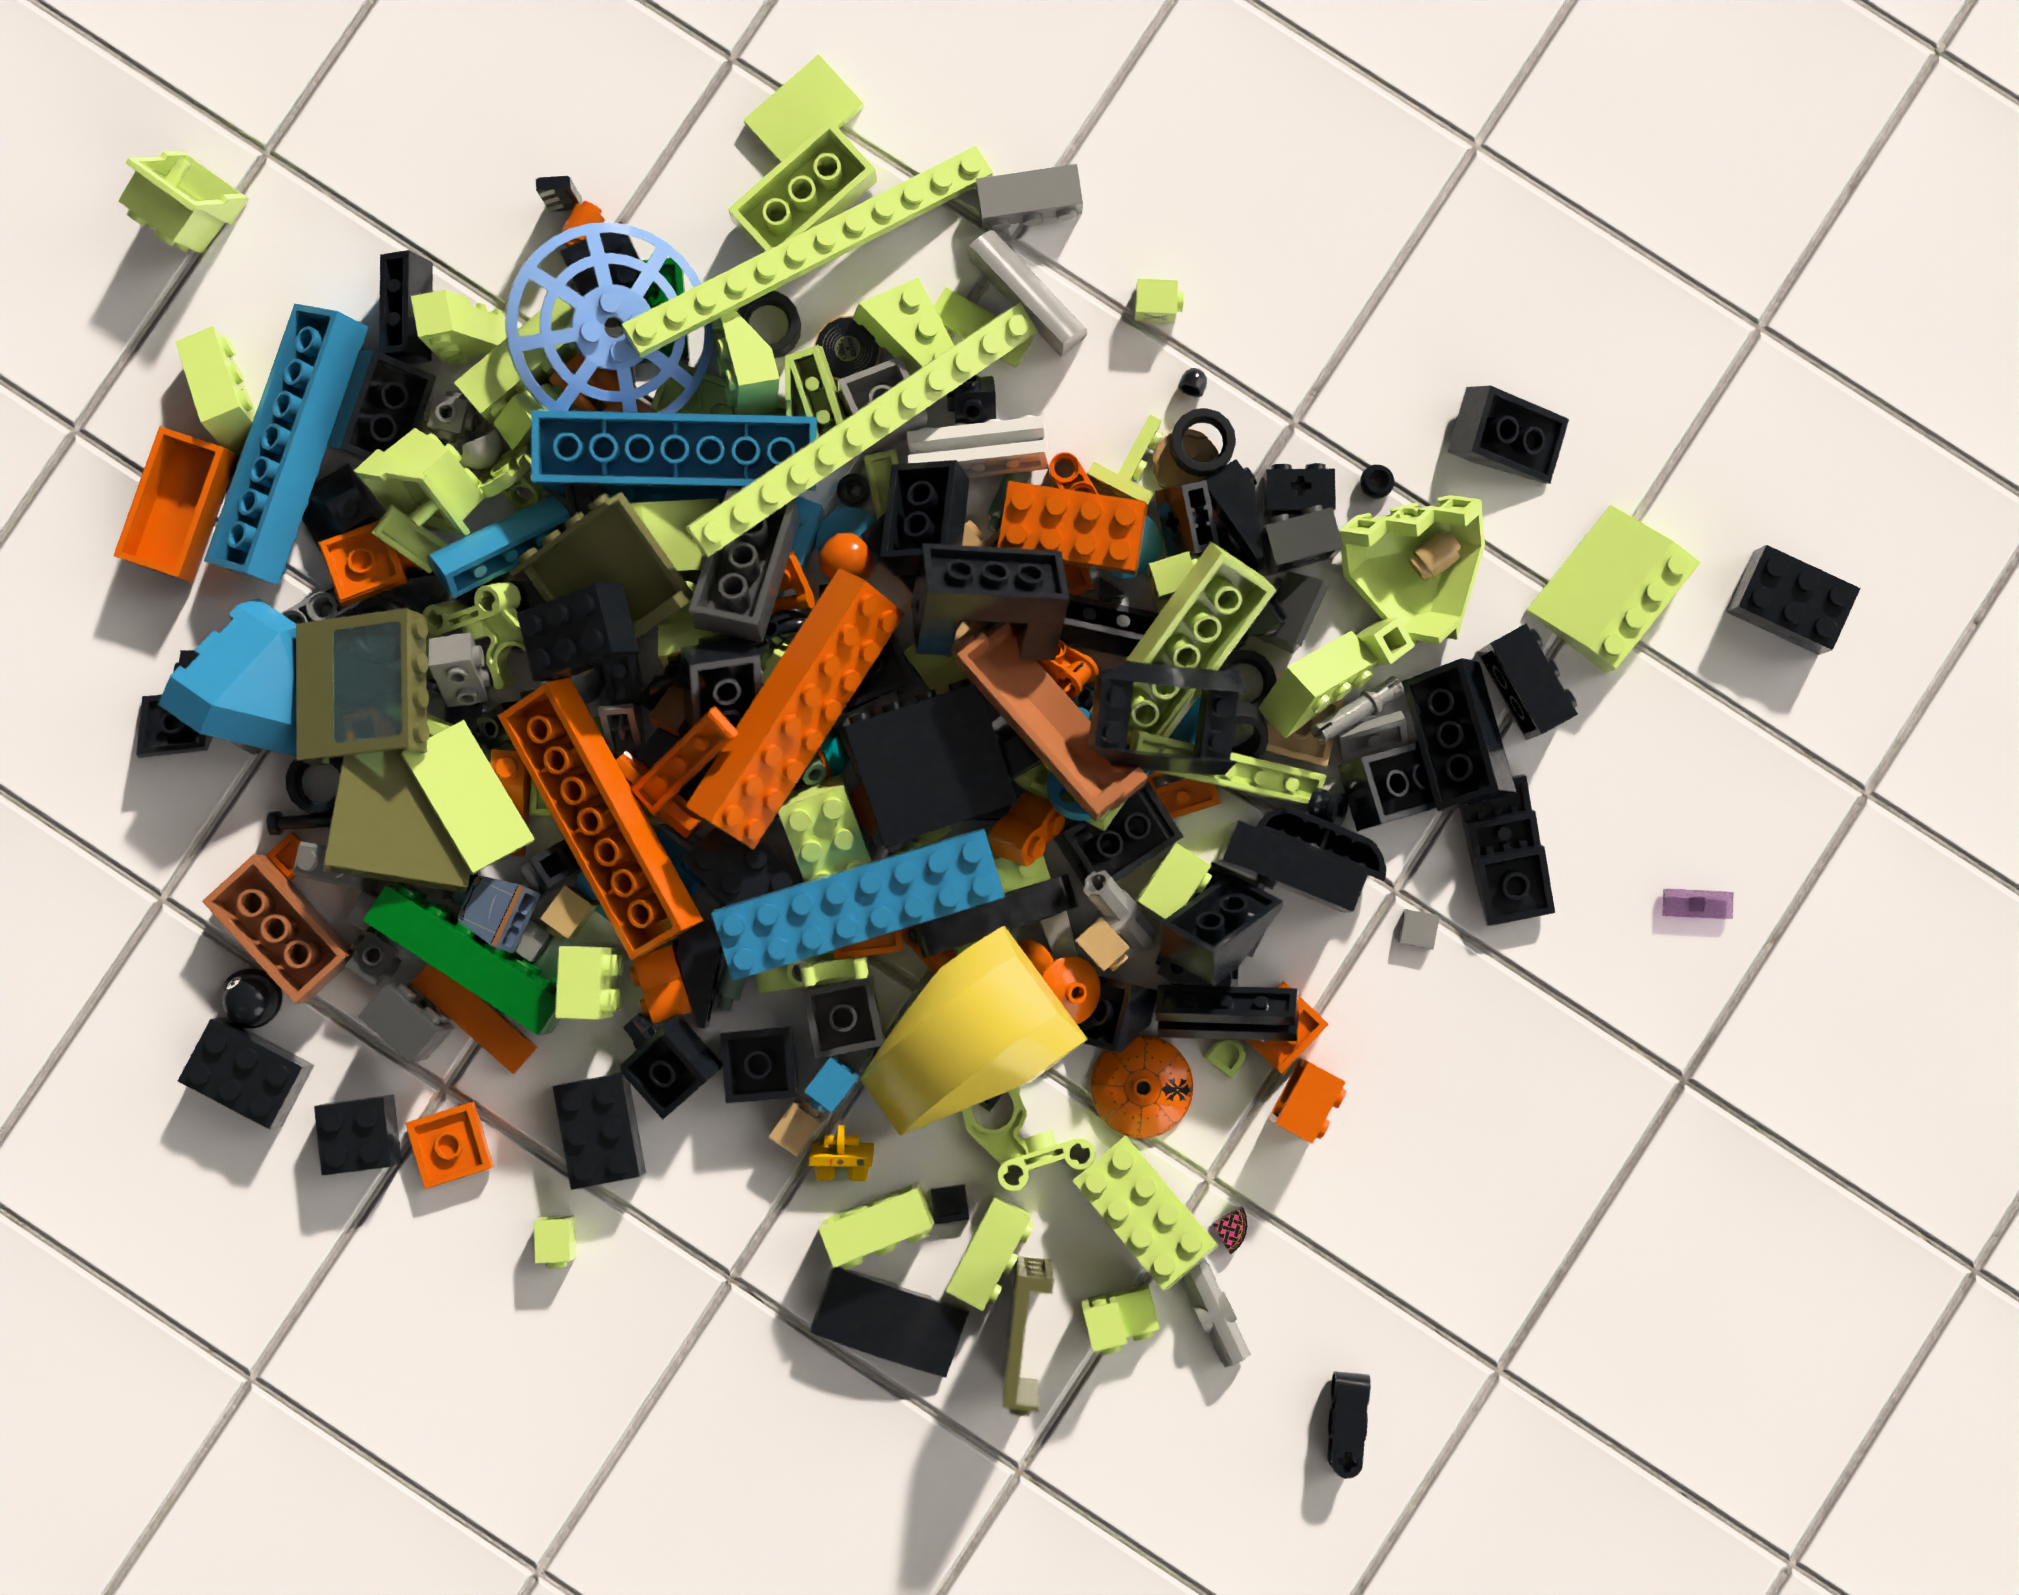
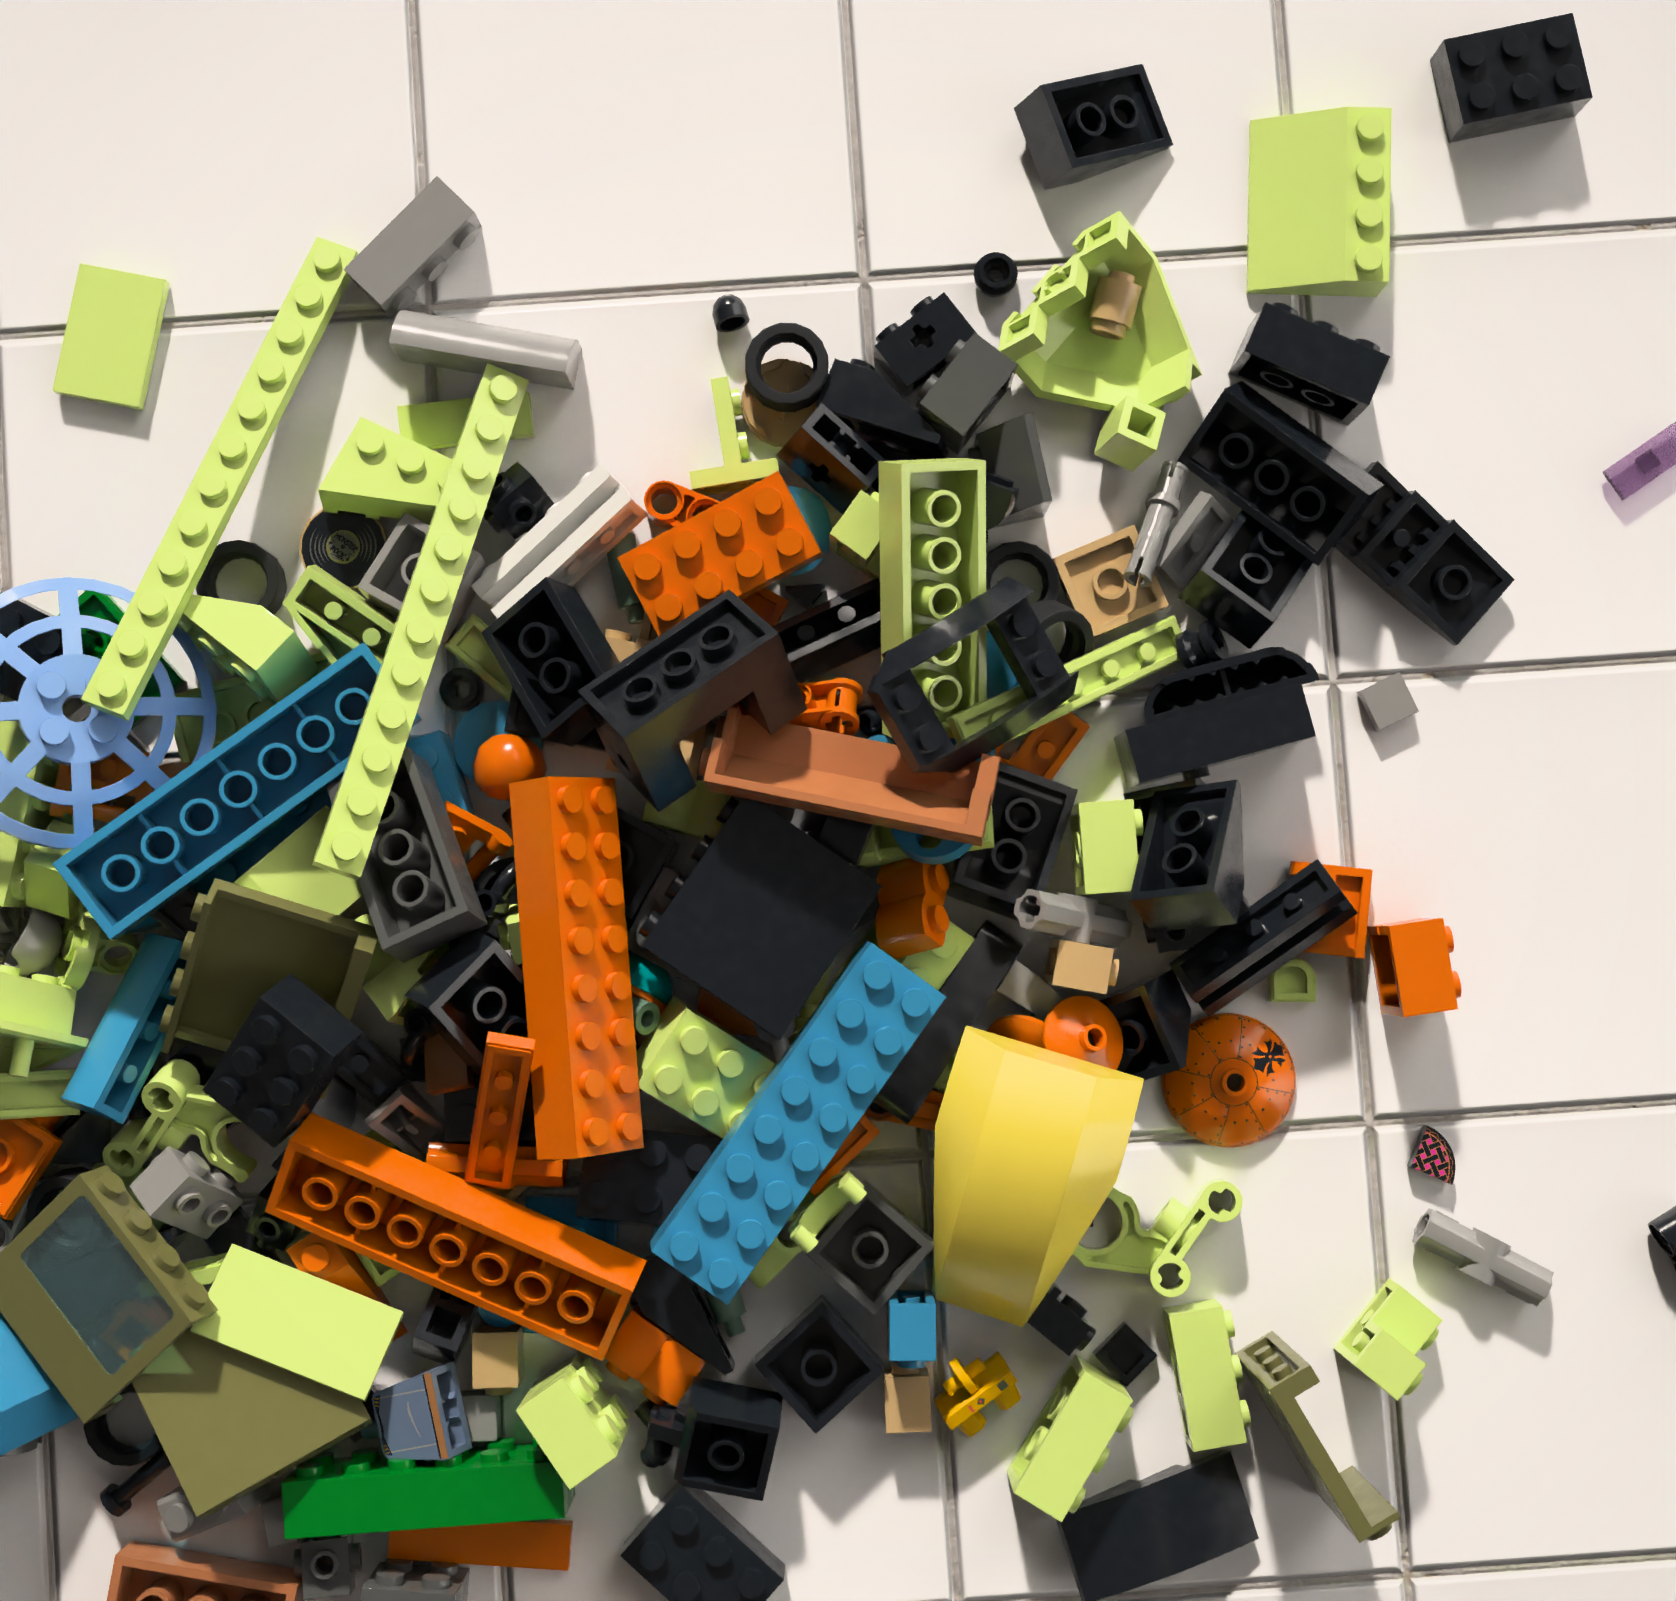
camera: 40 degrees left, 0 degrees up
(284, 854) = (149, 1525): orange tile -> none
(622, 1043) = (655, 1452): none -> black arm
(804, 189) = (170, 413): yellowish green brick -> none
(926, 1151) = (1062, 1321): none -> black brick
(1145, 1213) = (1338, 1211): yellowish green brick -> none
(1157, 300) = (628, 256): yellowish green brick -> none
(1317, 682) = (1095, 526): yellowish green wedge -> none

